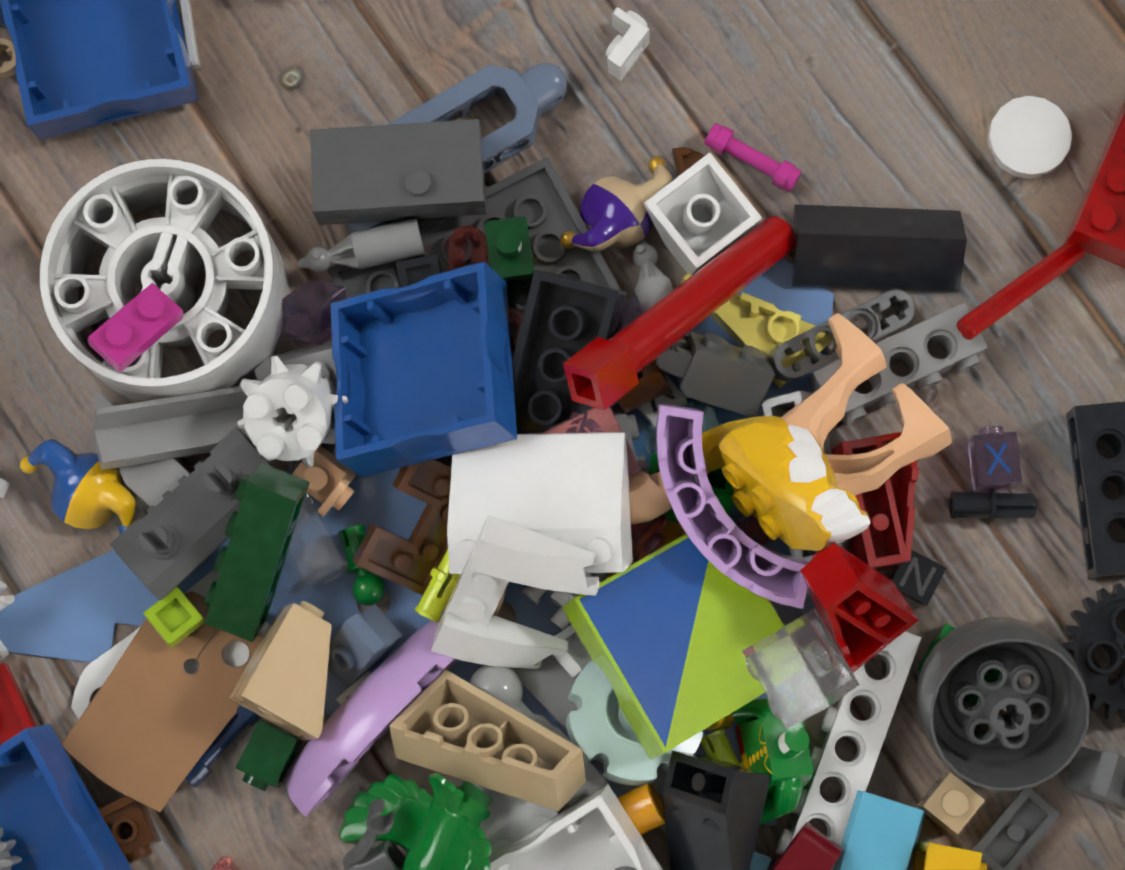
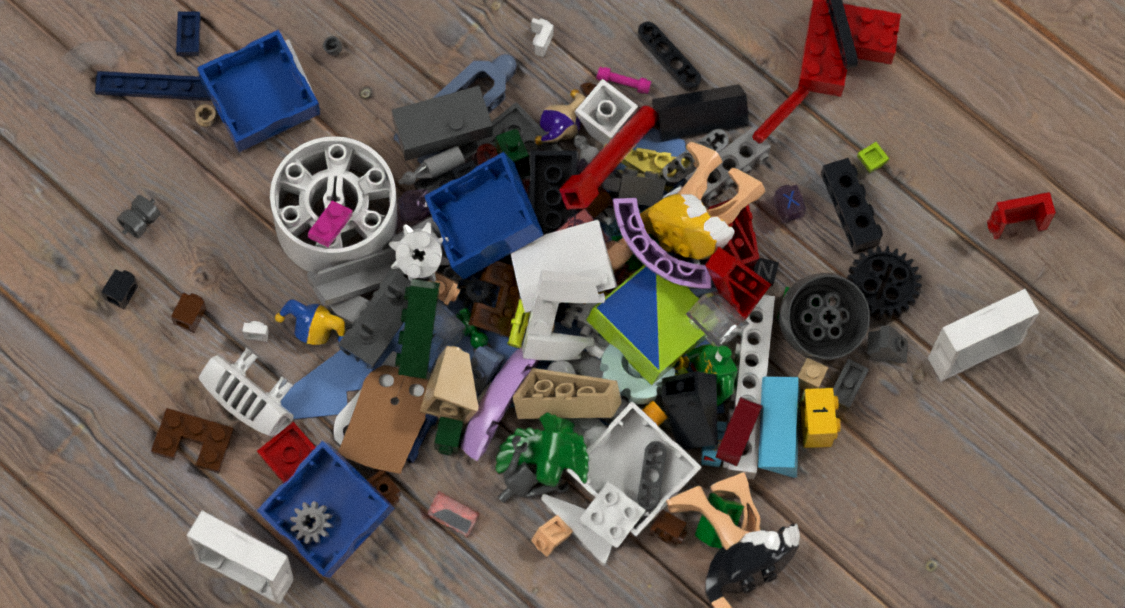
camera: 25 degrees left, 10 degrees down
(174, 617) = (380, 376): lime plate -> none
(377, 512) = (485, 289): none -> clear smoke gear
(851, 128) = (666, 58): none -> black beam
(992, 505) = (794, 226): black axle -> none
(1029, 137) = (765, 39): white tile -> none

